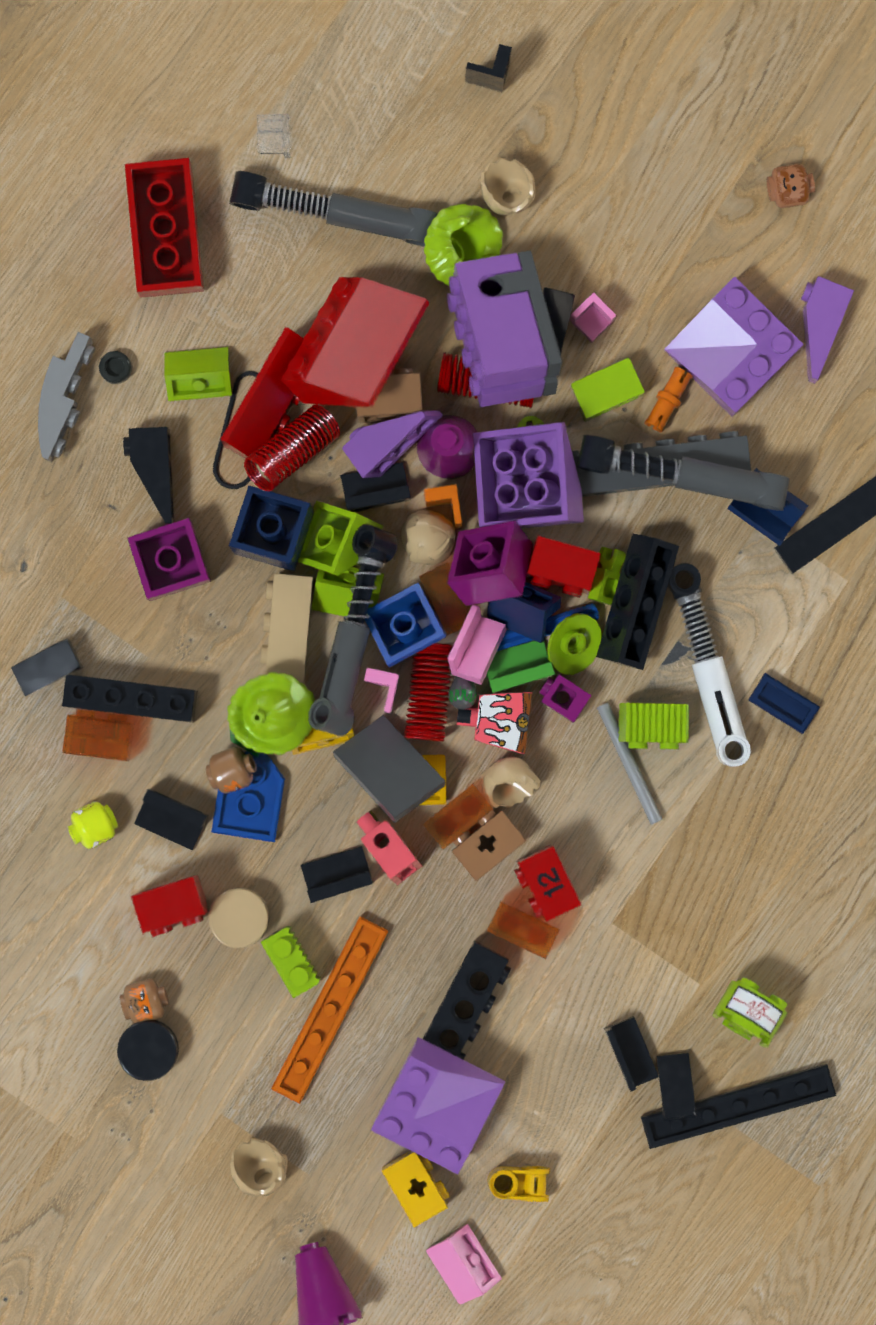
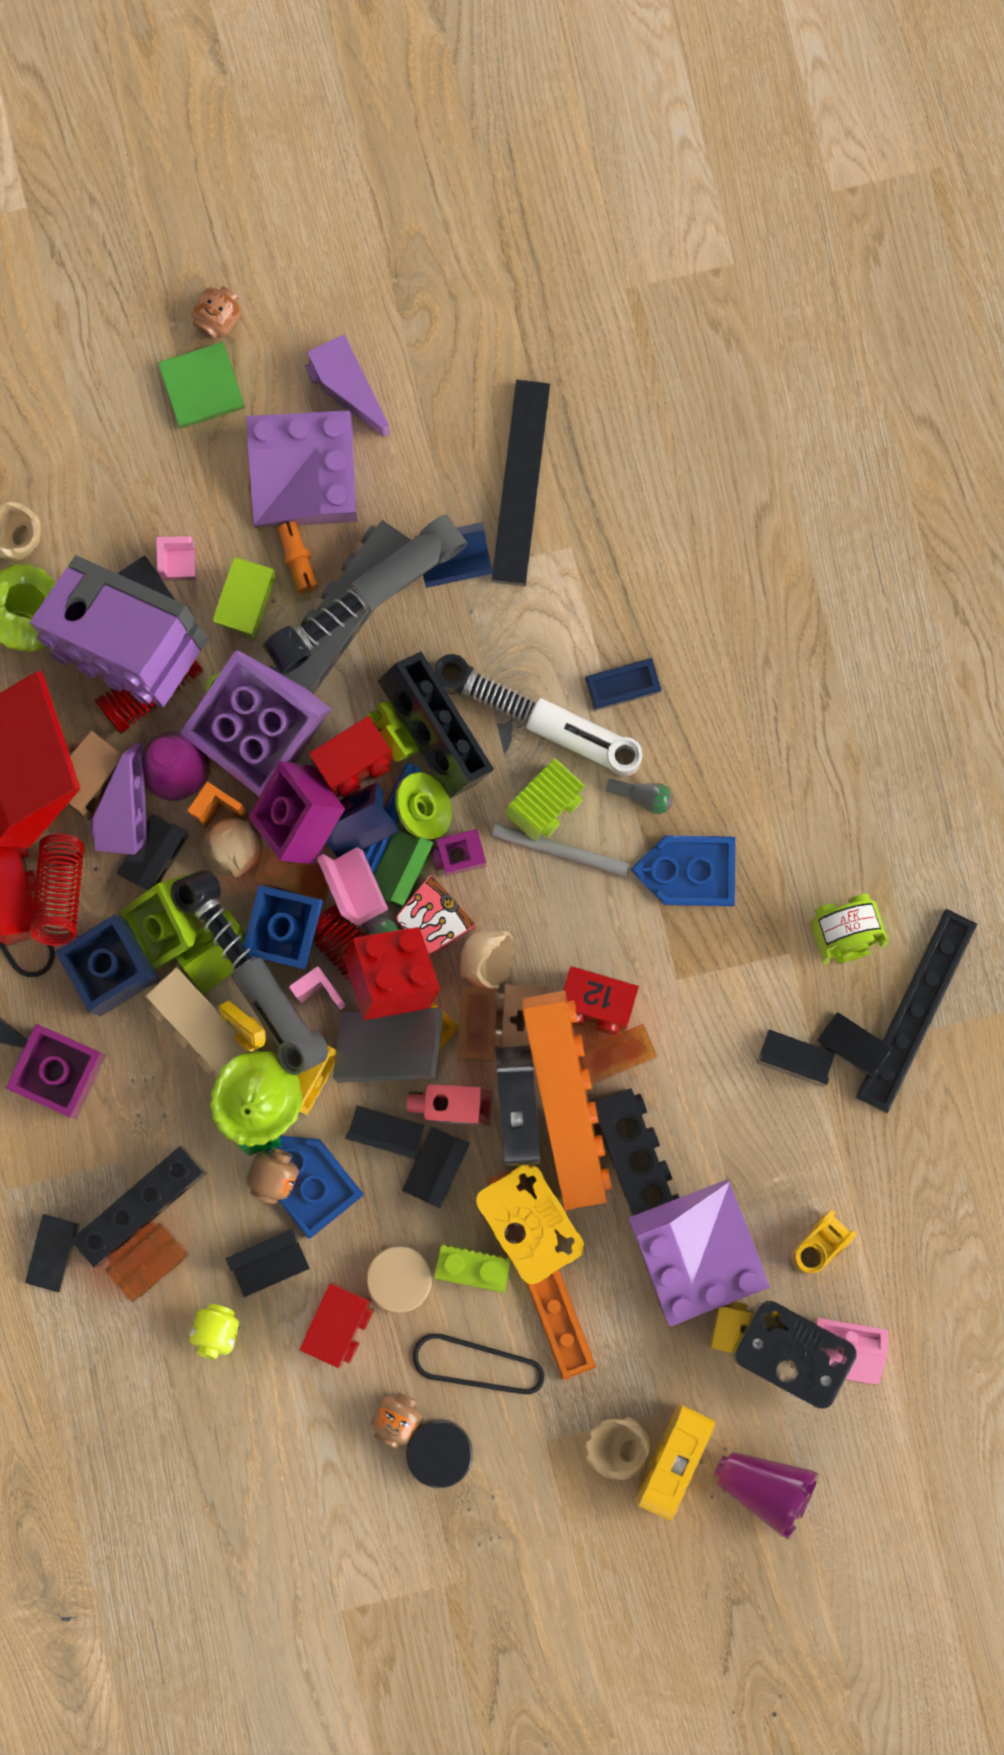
camera: 45 degrees left, 5 degrees down
(215, 1030) = (475, 1383): none -> black piece
(283, 1213) = (674, 1462): none -> yellow axle
(311, 669) = (249, 1032): none -> yellow plate
(329, 819) = (385, 1132): none -> black panel
(367, 977) = (505, 1204): none -> yellow axle
(426, 894) = (518, 1105): none -> black axle
(438, 728) = (391, 973): none -> red brick
(438, 1229) = (799, 1342): none -> black axle
(459, 923) = (565, 1099): none -> orange brick
(695, 866) = (690, 870): none -> blue tile
(722, 793) = (652, 797): none -> dark grey piece
(730, 222) = (201, 385): none -> bright green tile

